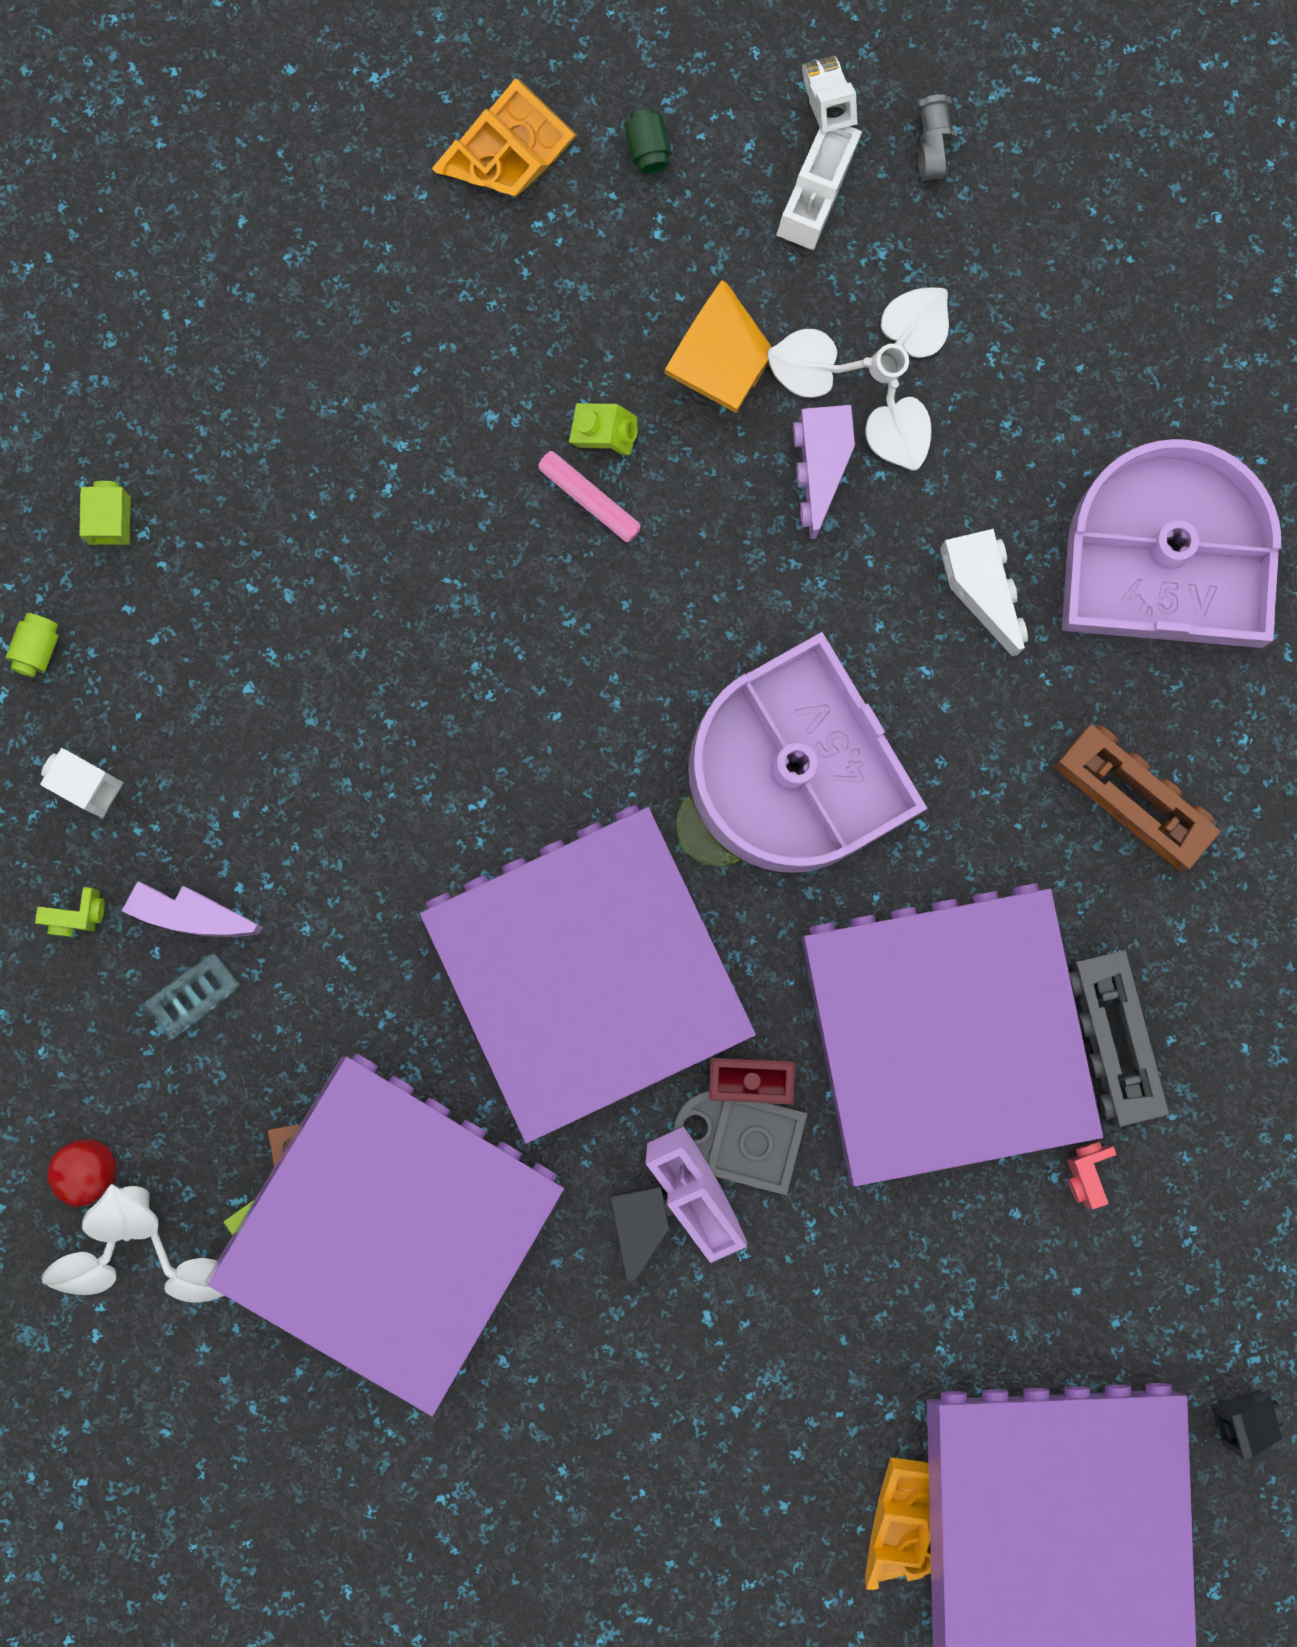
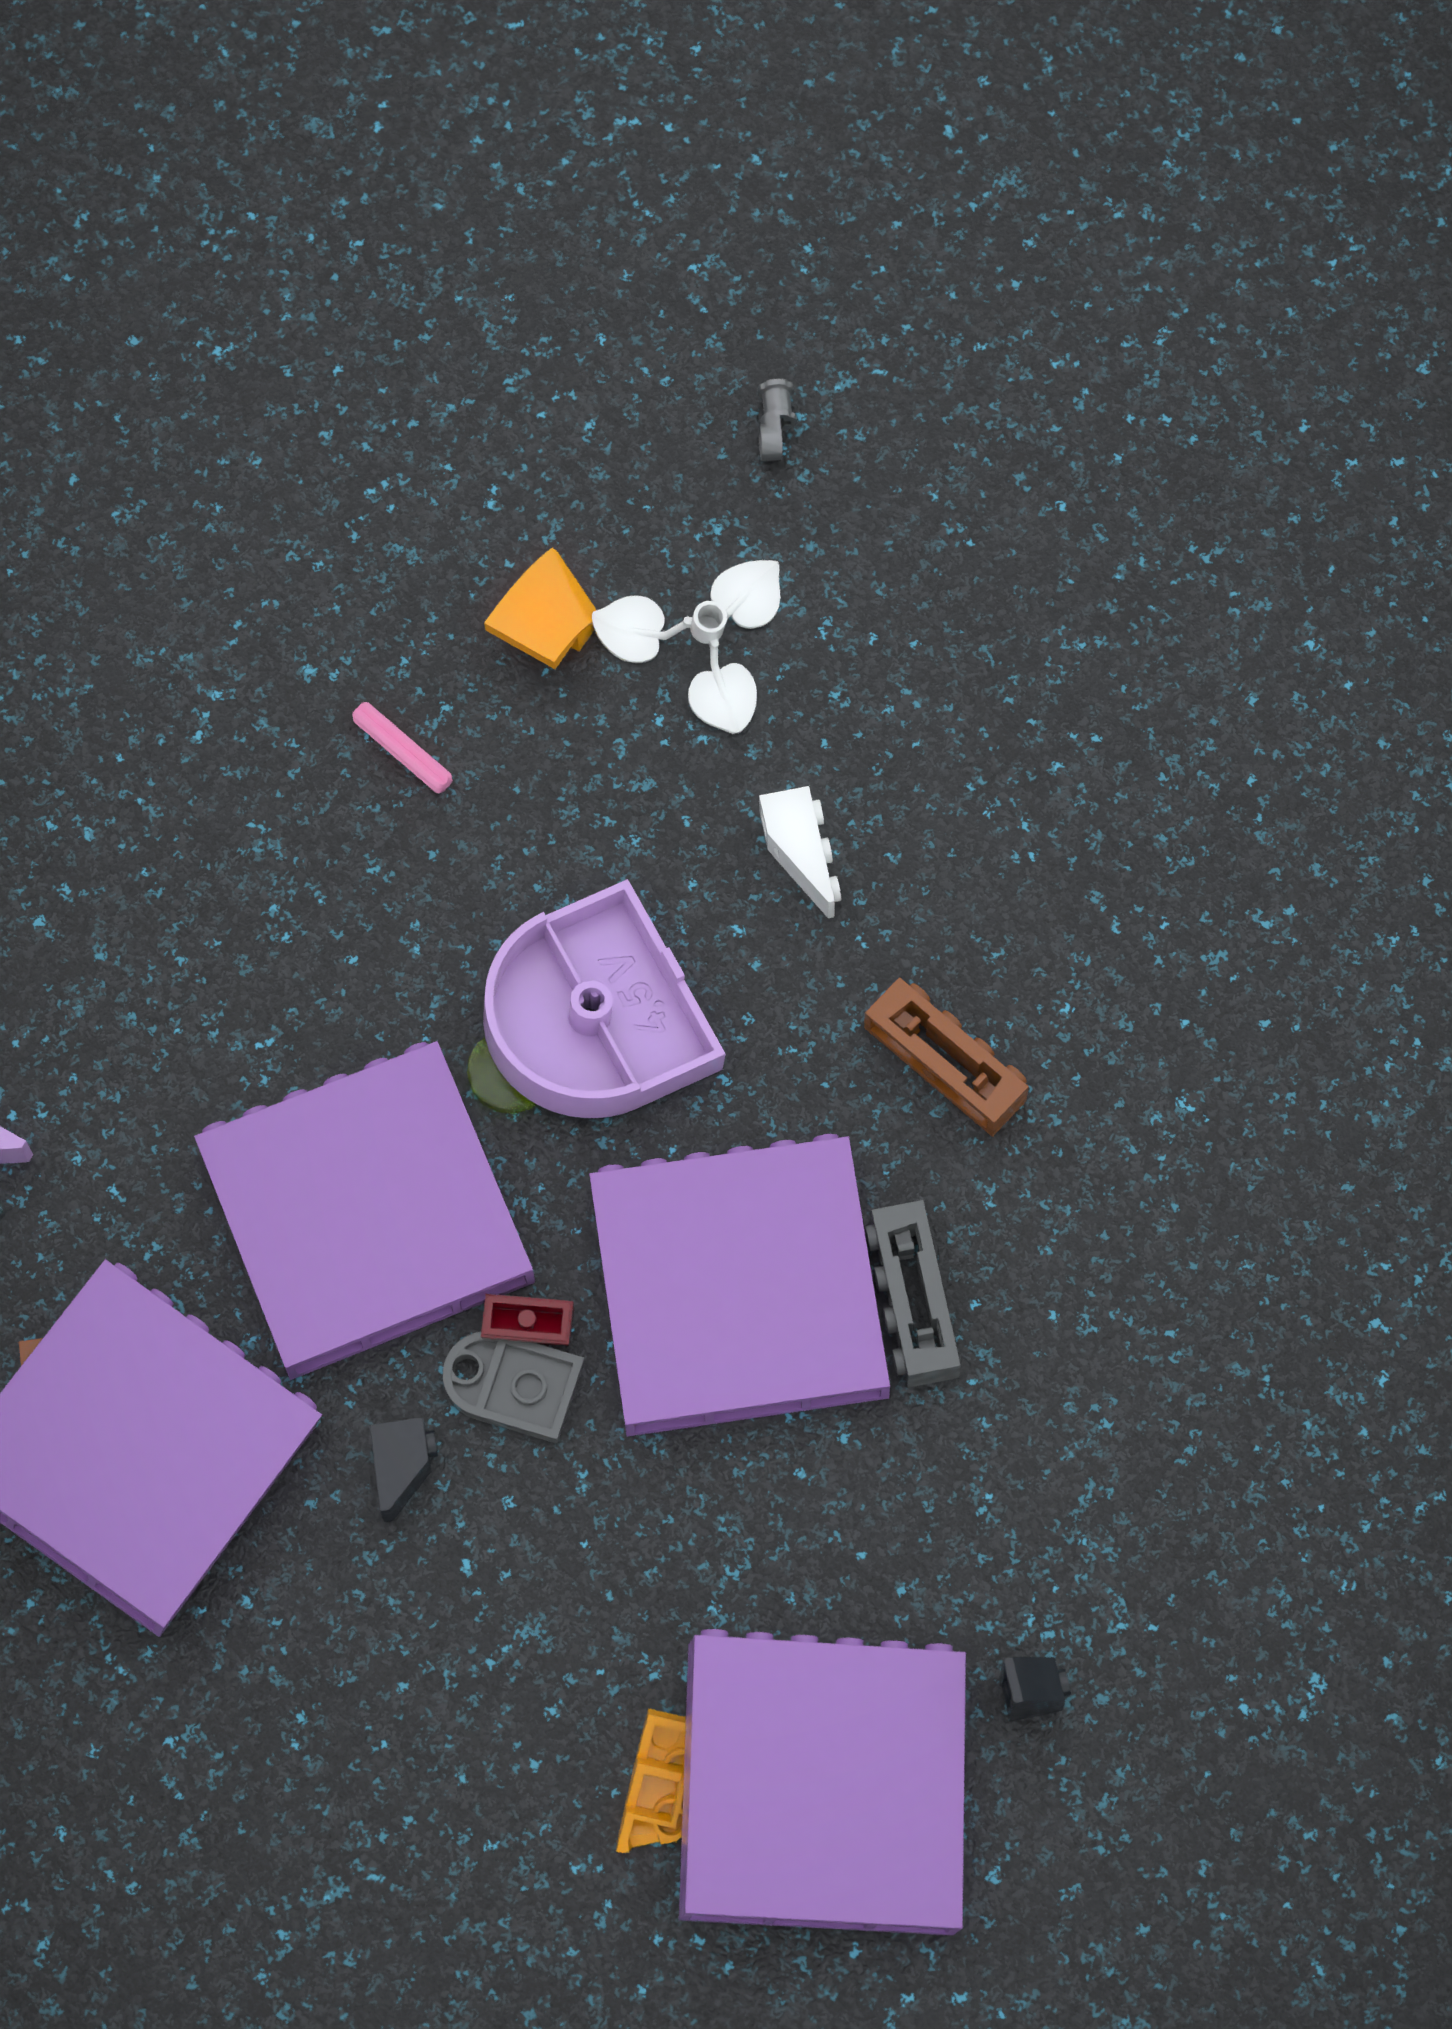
camera: 10 degrees right, 15 degrees down
(508, 143) = (345, 414): light orange slope -> none
(603, 427) = (421, 680): lime bracket -> none
(648, 141) = (485, 415): dark green brick -> none
(695, 1194) = (460, 1432): lavender slope -> none
(818, 186) = (654, 460): white slope -> none
(826, 448) = (647, 715): lavender slope -> none
(827, 89) = (669, 373): white leg -> none
(1085, 1181) = (872, 1437): coral bracket -> none
(1134, 584) = (958, 851): lavender piece -> none

